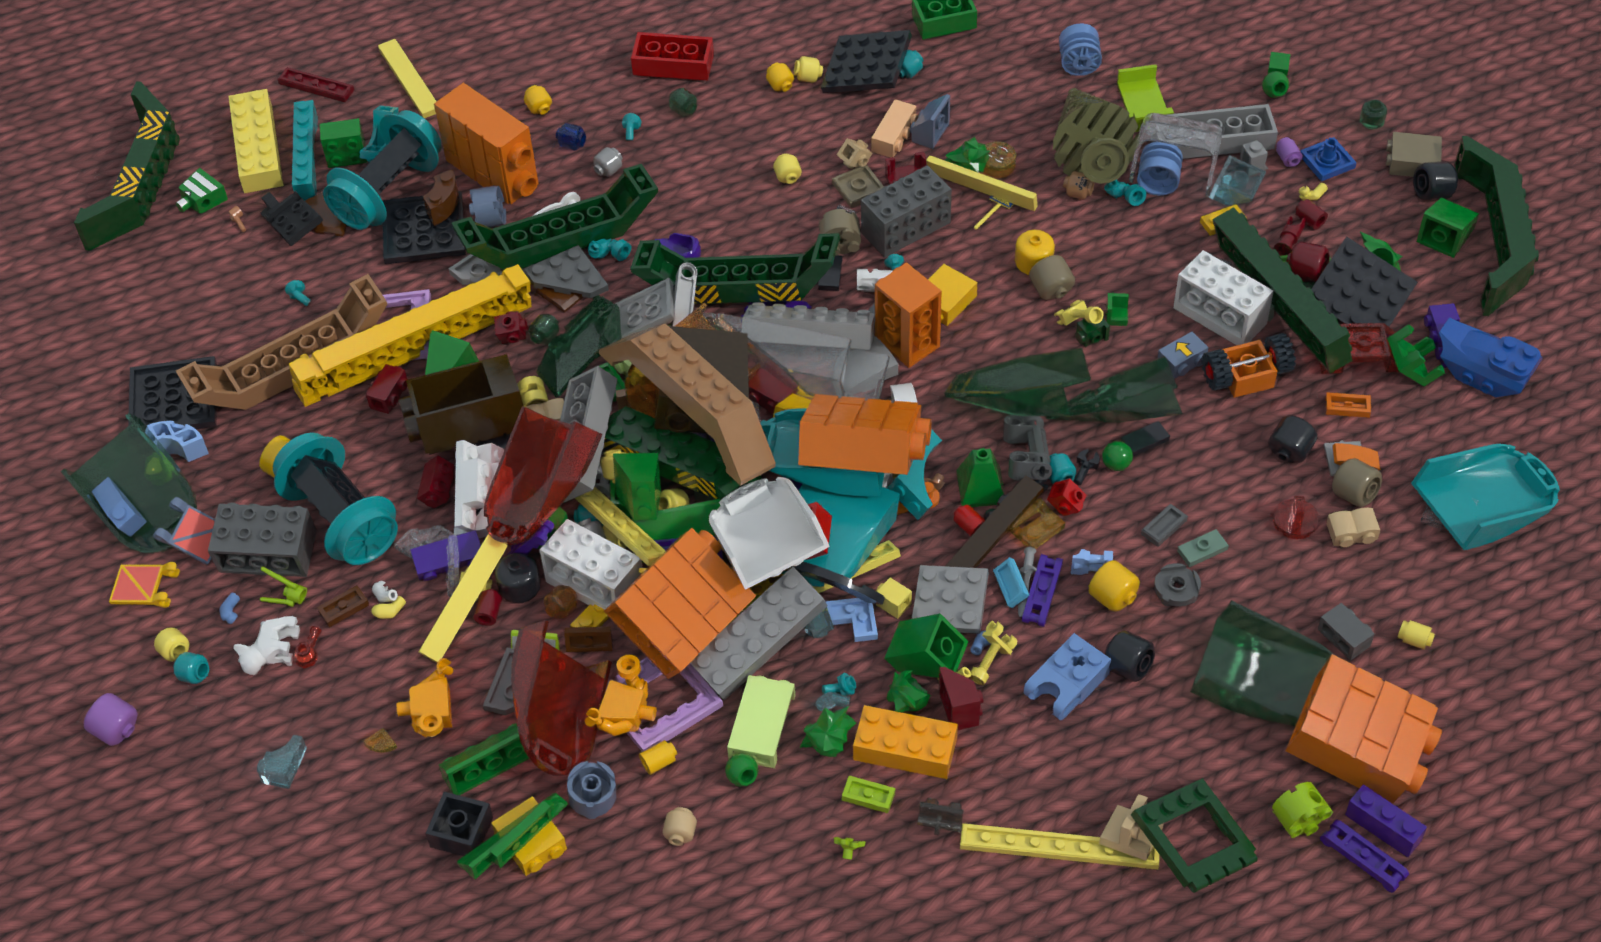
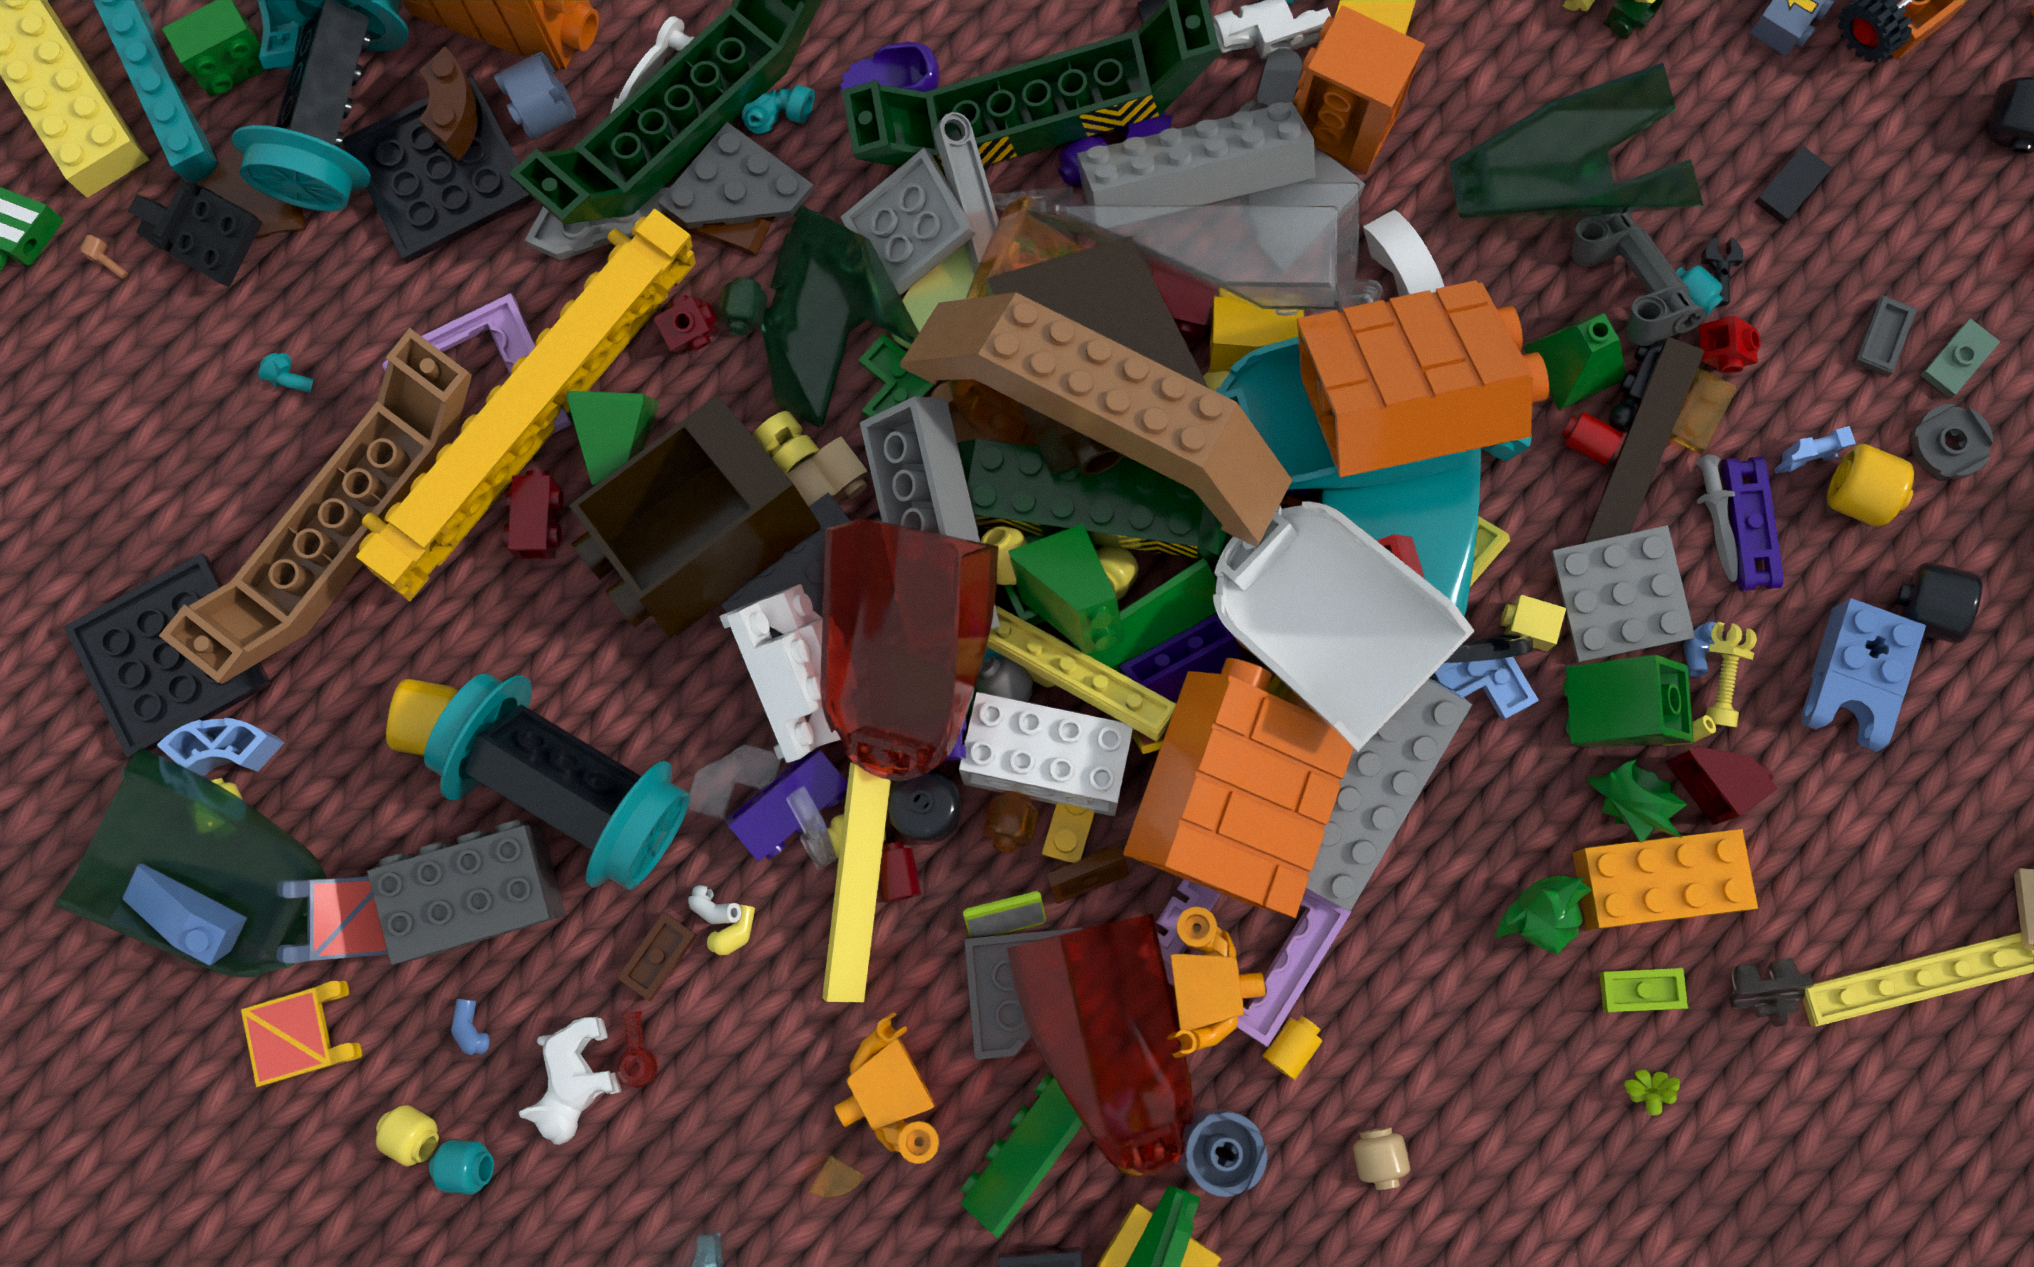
camera: 20 degrees left, 25 degrees up
(294, 592) = (563, 960): lime plant -> none
(436, 482) = (702, 671): dark red brick -> none
(741, 770) = (1436, 1024): green piece -> none
(761, 719) = (1428, 921): yellowish green panel -> none
(832, 699) = (1510, 841): clear light blue arm -> none
(845, 685) = (1522, 806): teal plate -> none
(1011, 582) = (1701, 529): medium azure tile -> none
(1117, 456) = (1772, 237): green piece -> none
(1128, 396) = (1732, 106): clear green windscreen -> none

